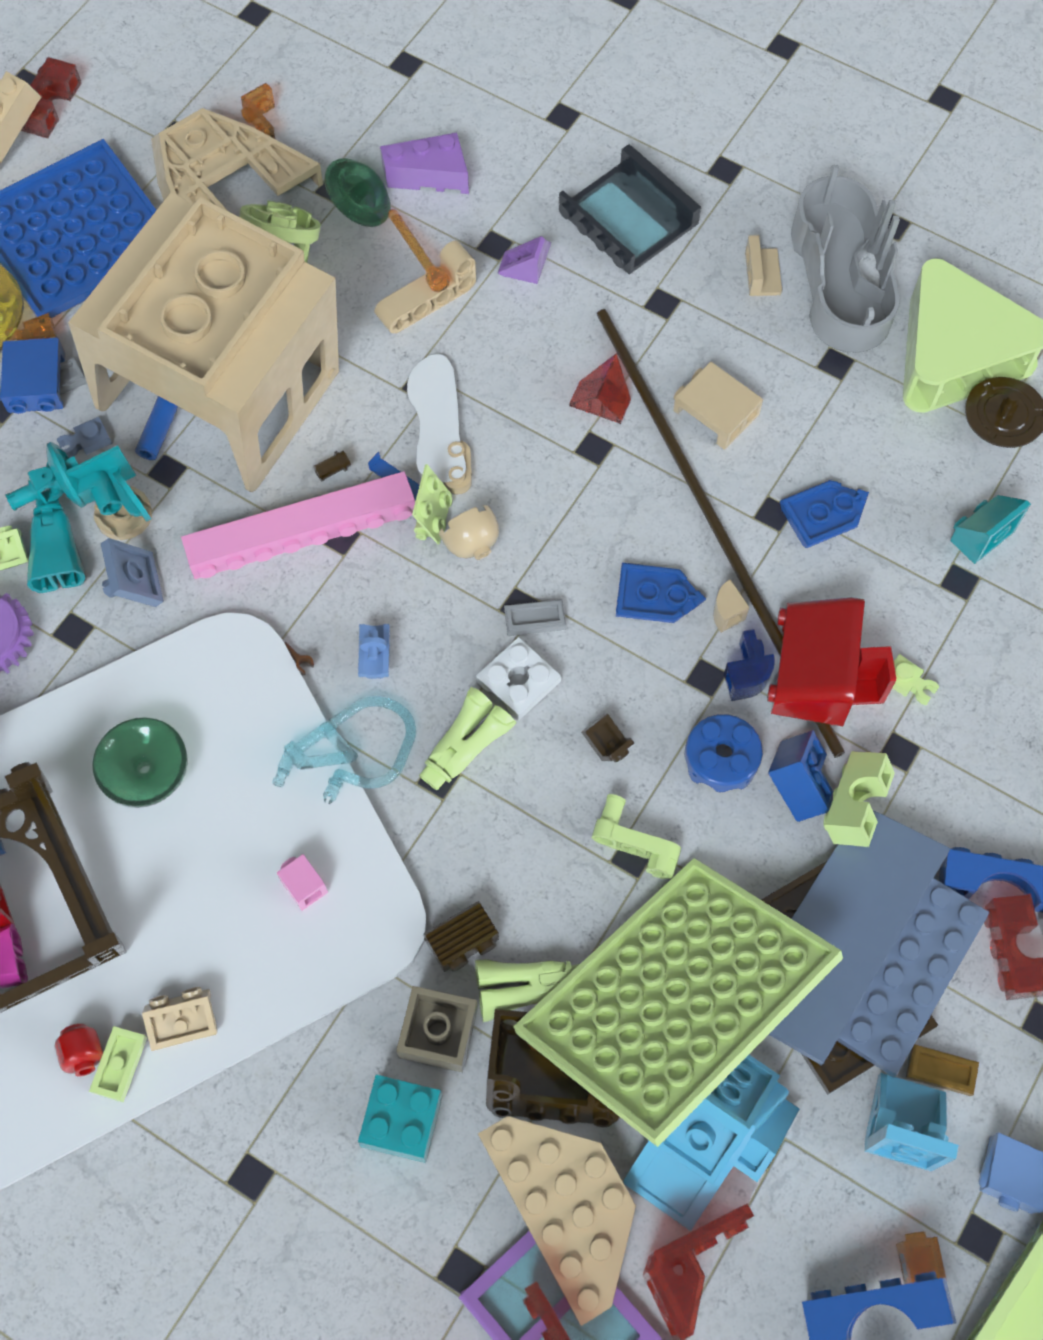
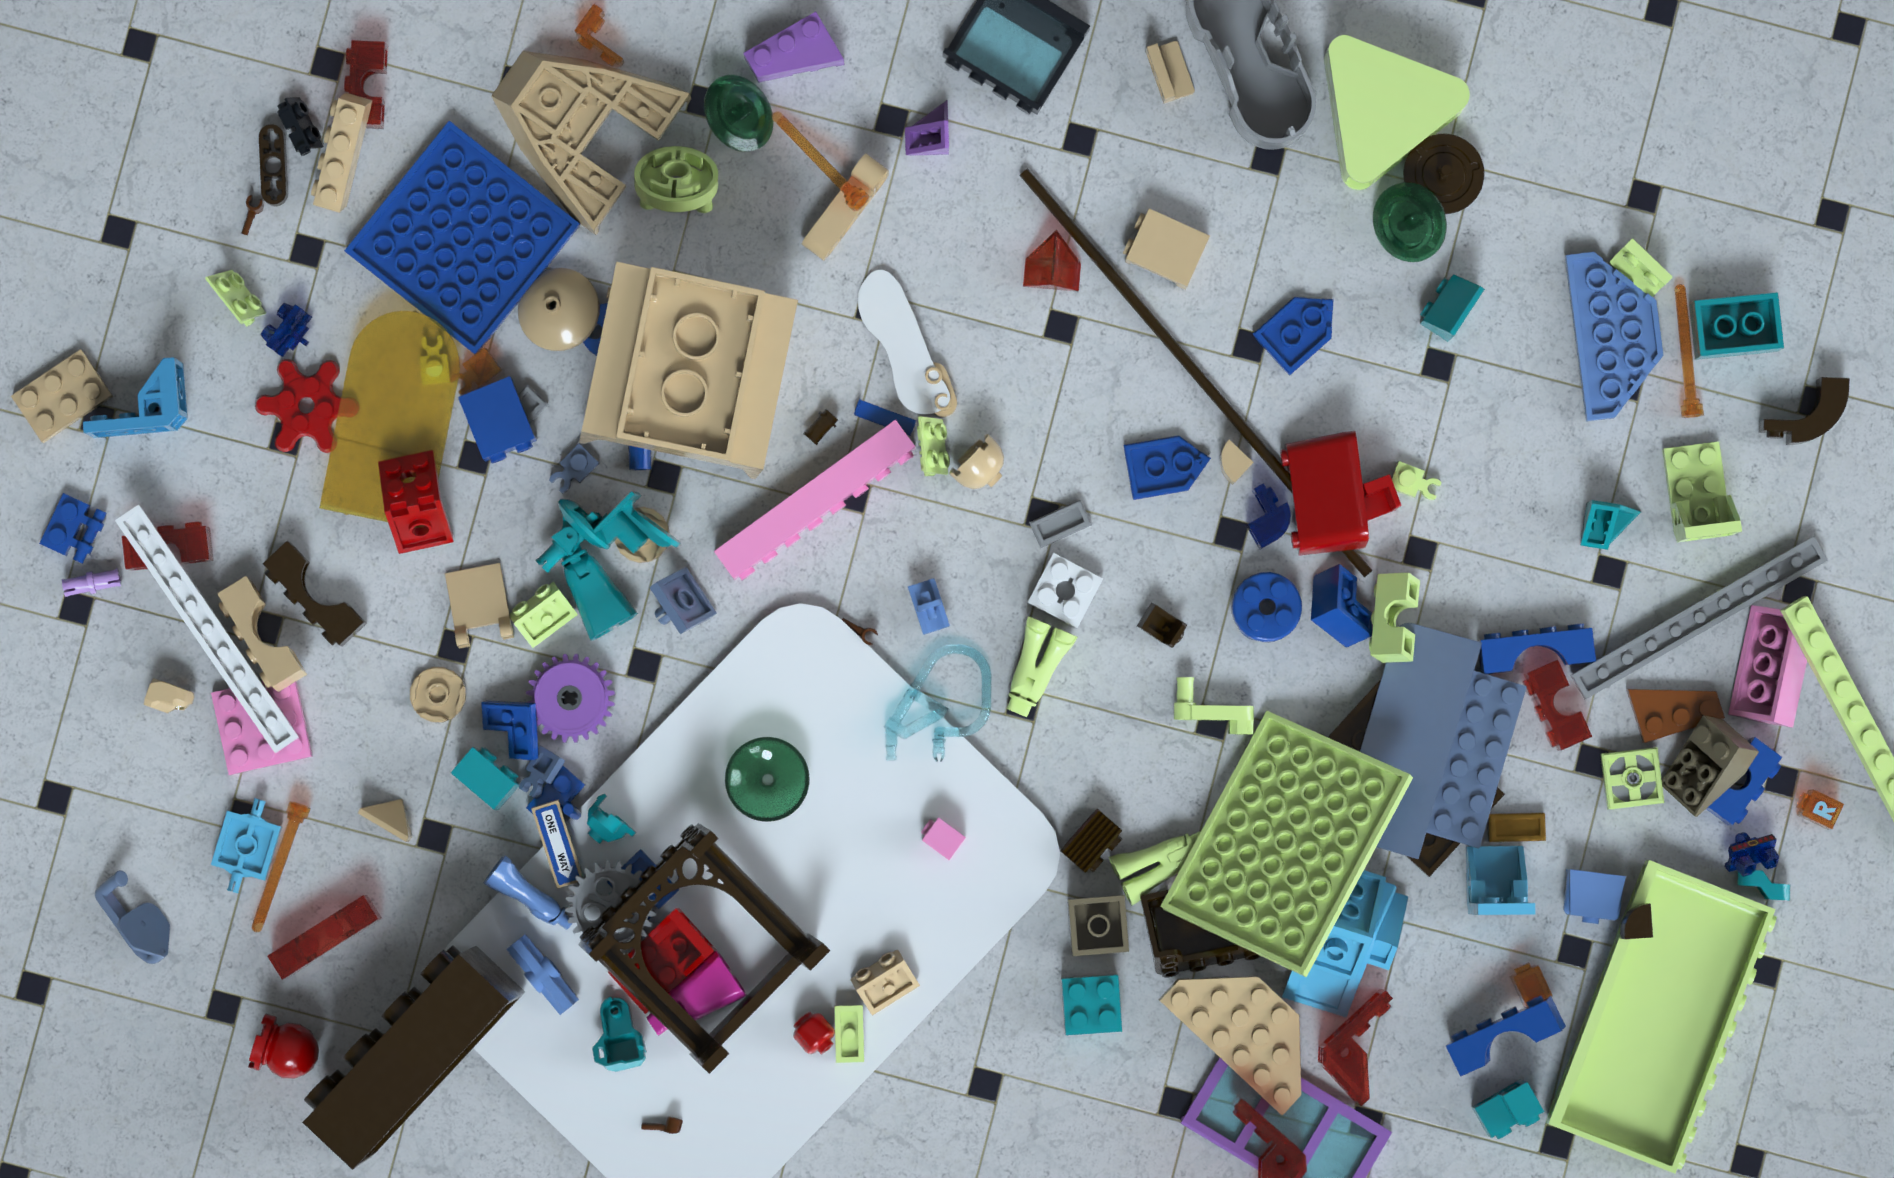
camera: 20 degrees left, 20 degrees up
(963, 440) = (1409, 222): none -> clear green piece

